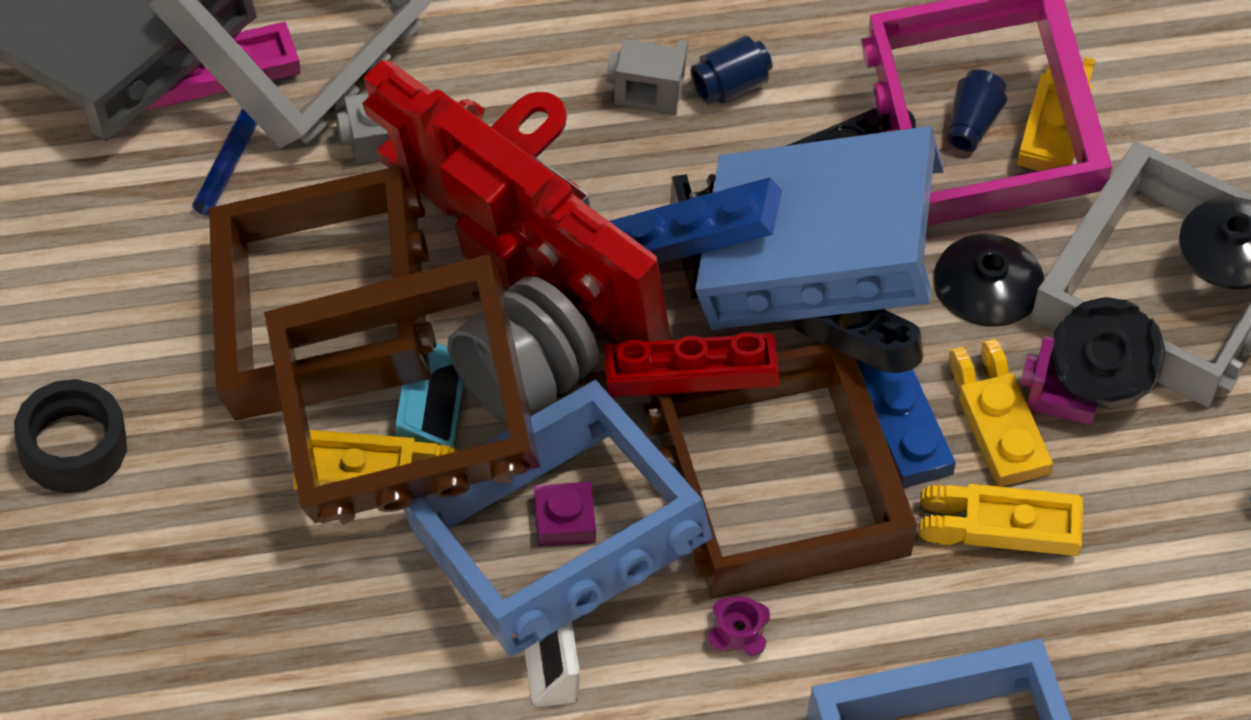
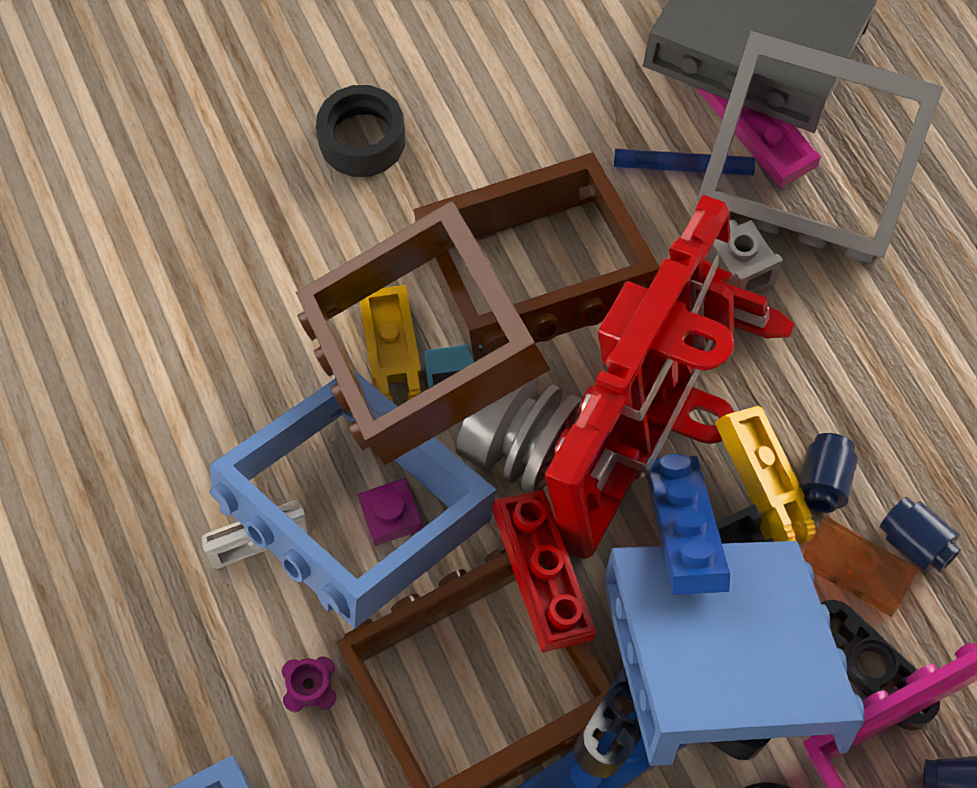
camera: 80 degrees right, 10 degrees up
(637, 166) = (767, 475): none -> yellow hinge
(644, 122) = (828, 472): none -> dark blue brick
(648, 75) = (885, 463): light grey brick -> none
(749, 125) = (859, 566): none -> clear orange plate

